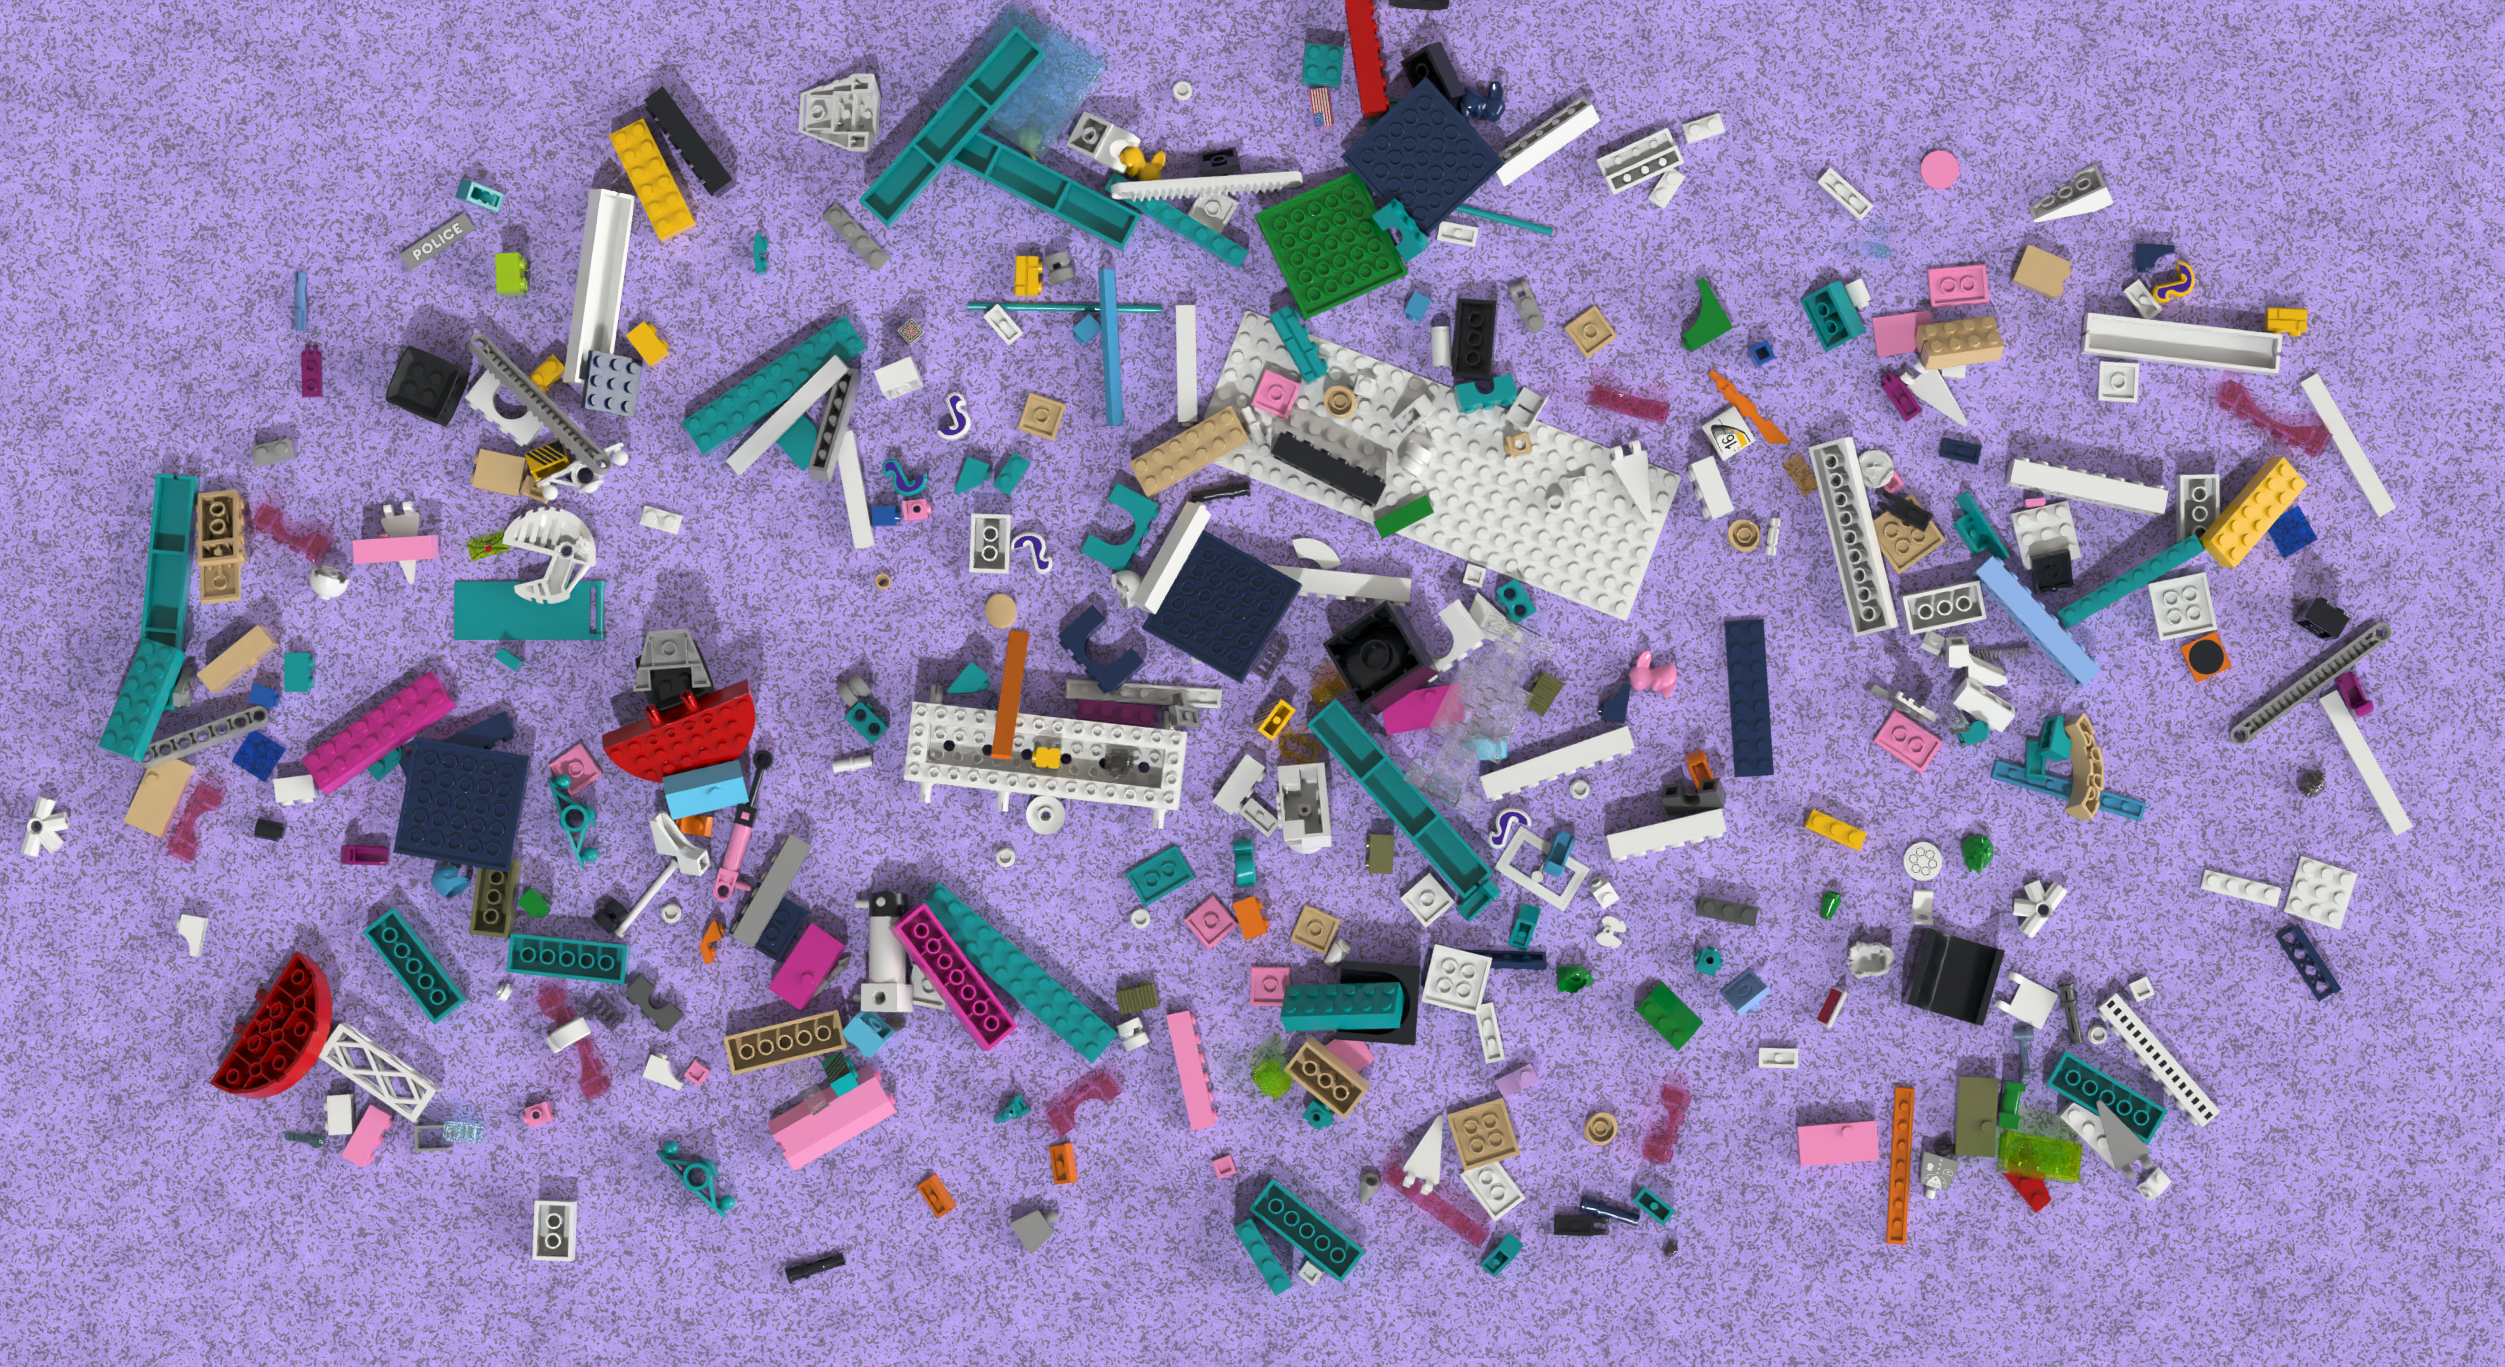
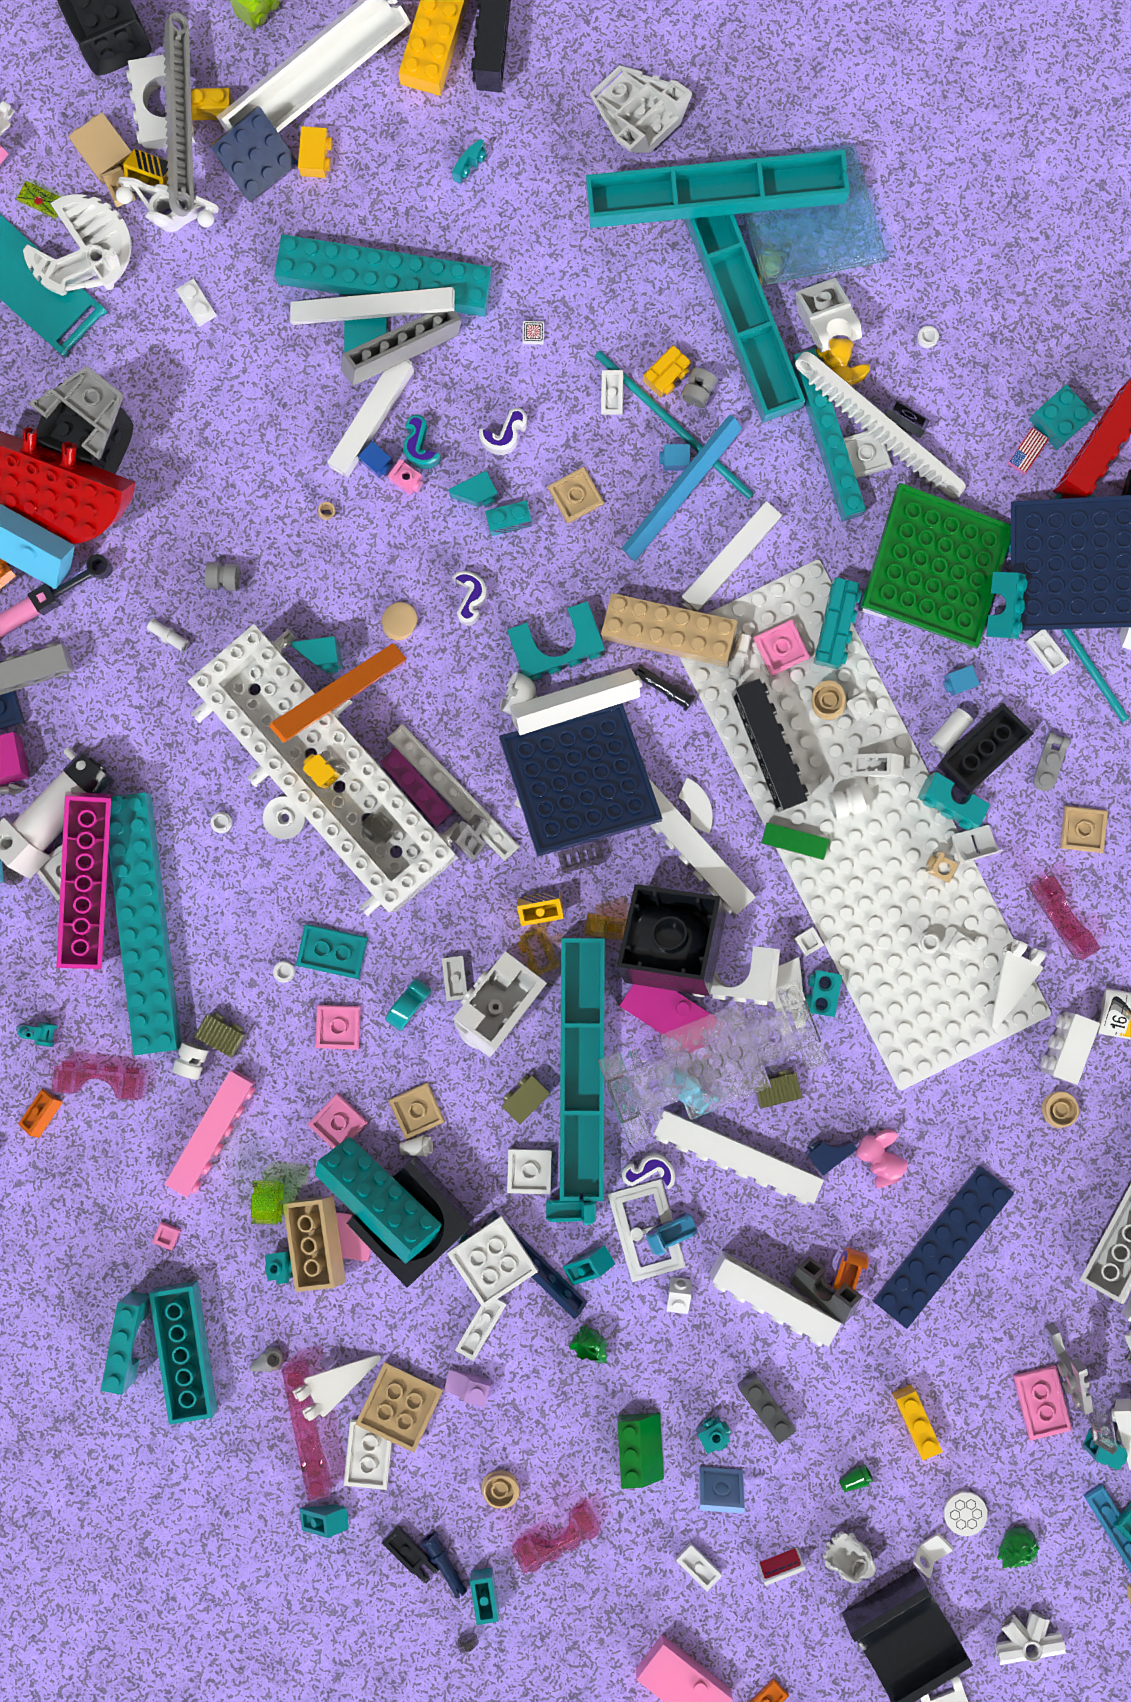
camera: 45 degrees right, 0 degrees up
(856, 237) = (558, 218): light grey plate -> none
(863, 726) = (203, 613): teal brick -> none
(898, 378) = (486, 352): white brick -> none
(990, 544) = (439, 558): white brick -> none
(1110, 676) = (438, 698): dark blue arch -> none
(1239, 785) = (462, 937): white brick -> none
(1250, 917) = (370, 1054): orange brick -> none
(1311, 1272) = (154, 1389): white plate -> none
(1579, 789) = (736, 1194): white plate -> none
(1606, 937) = (648, 1335): white piece -> none
(1772, 537) = (1083, 1132): white axle -> none

